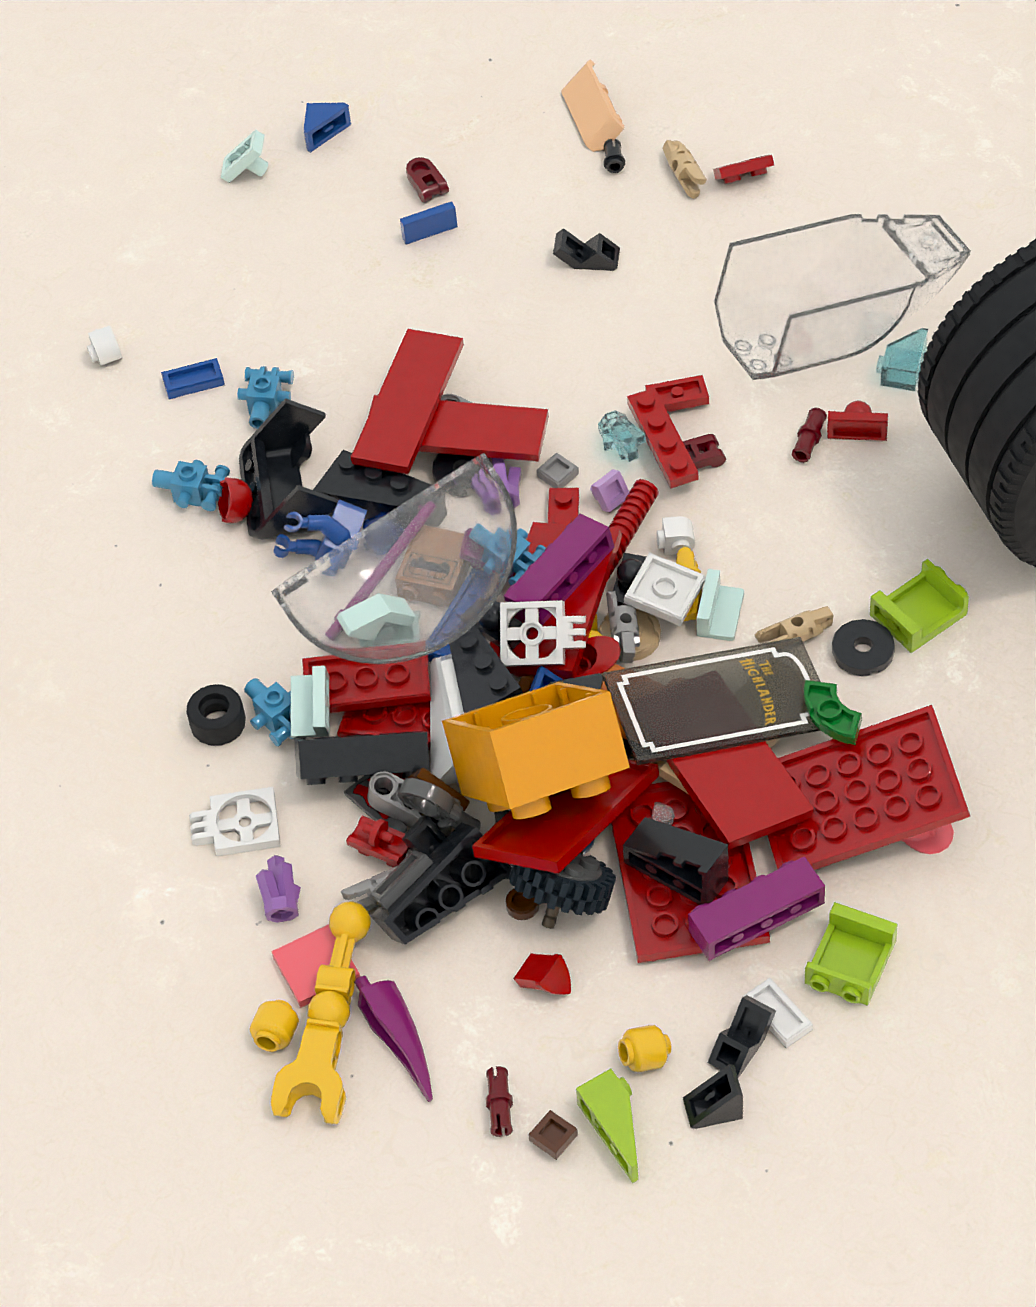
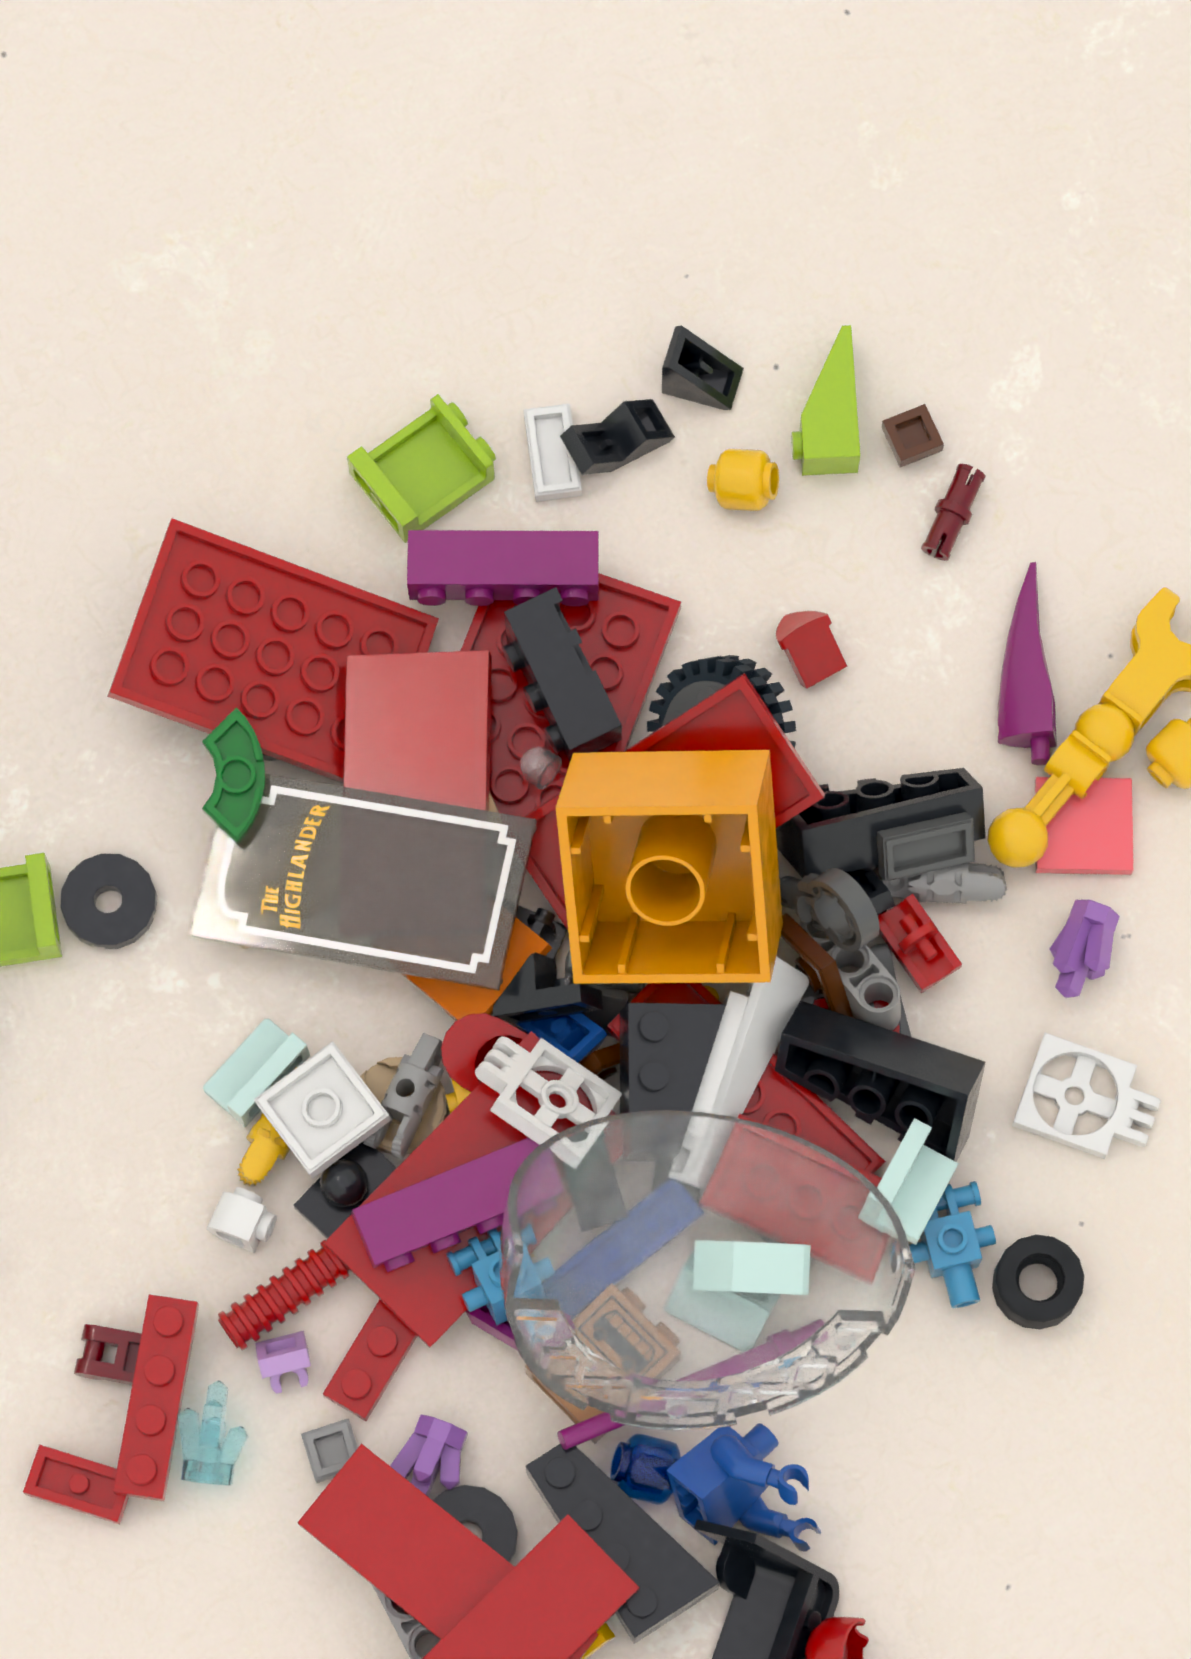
camera: 155 degrees left, 20 degrees up
(803, 625) = (158, 967): tan hinge -> none

